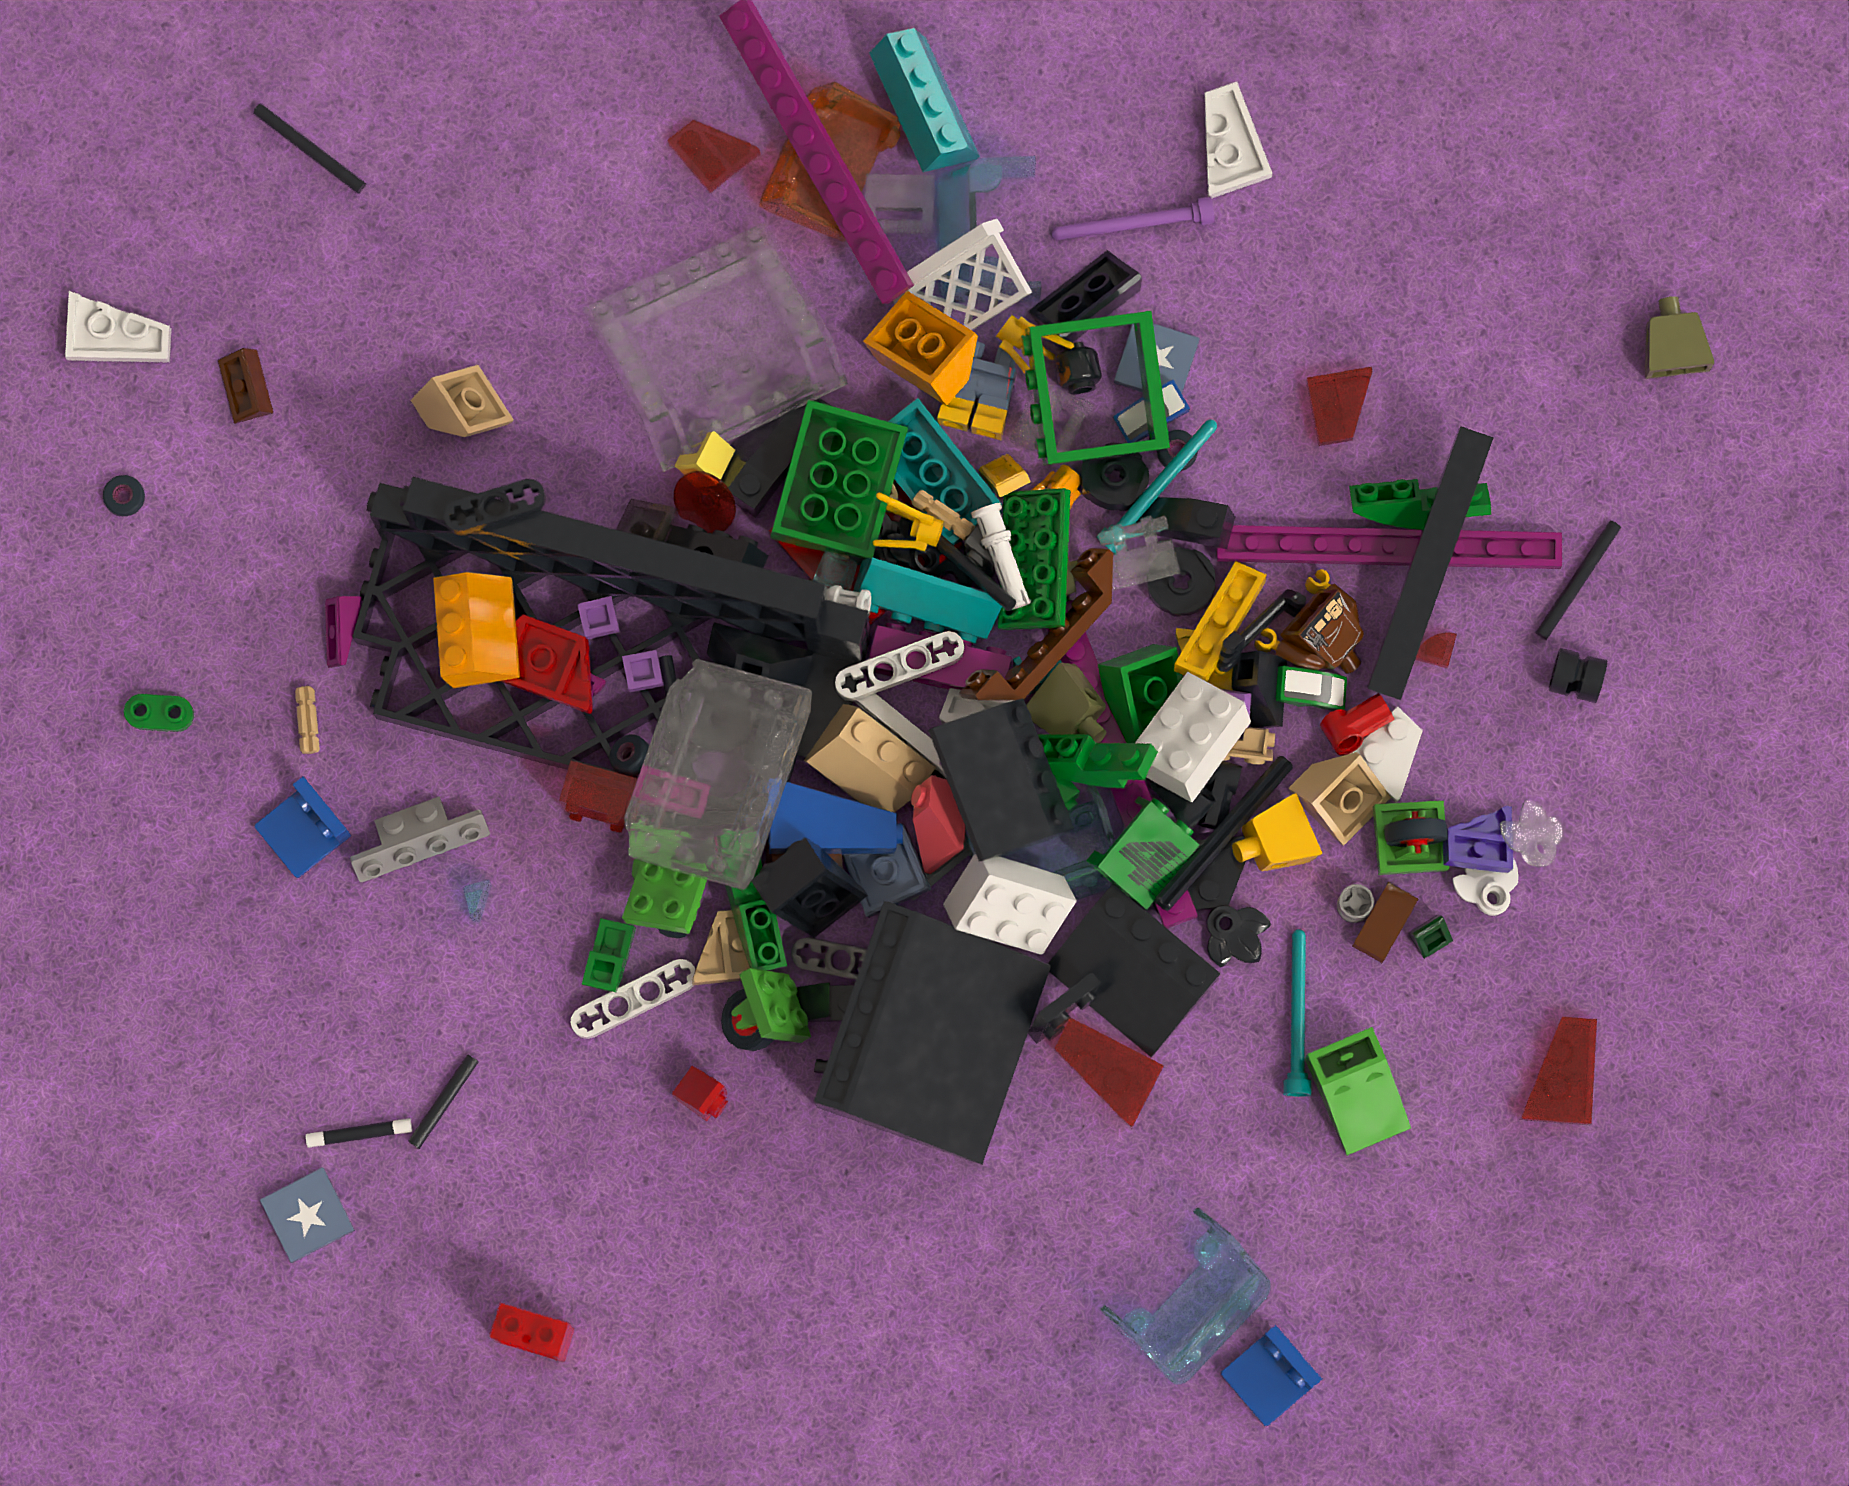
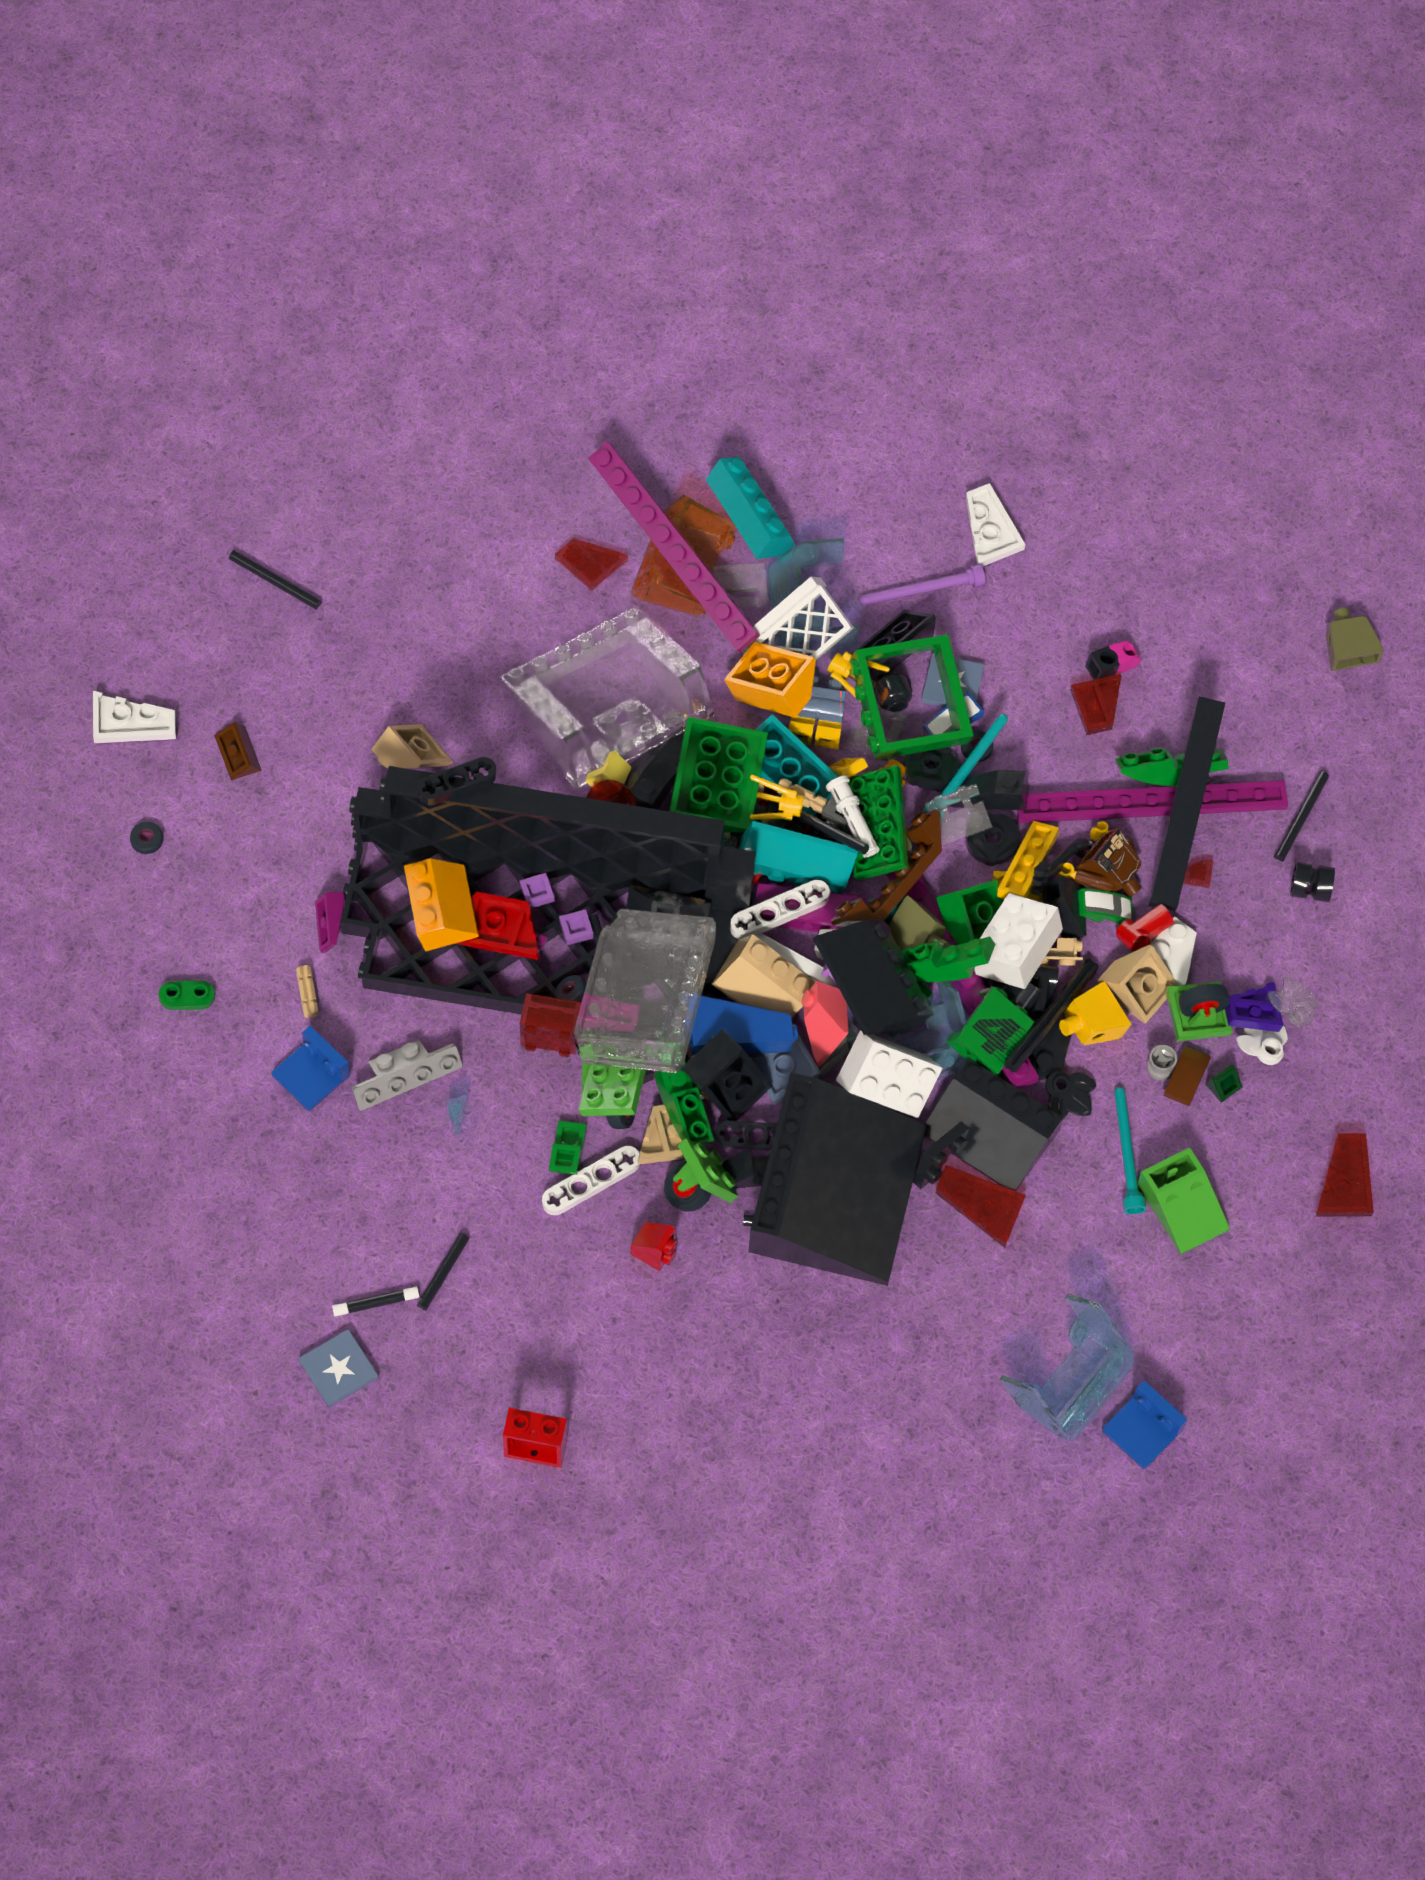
camera: 10 degrees left, 15 degrees down
(1364, 346) = (1112, 660): none -> leg

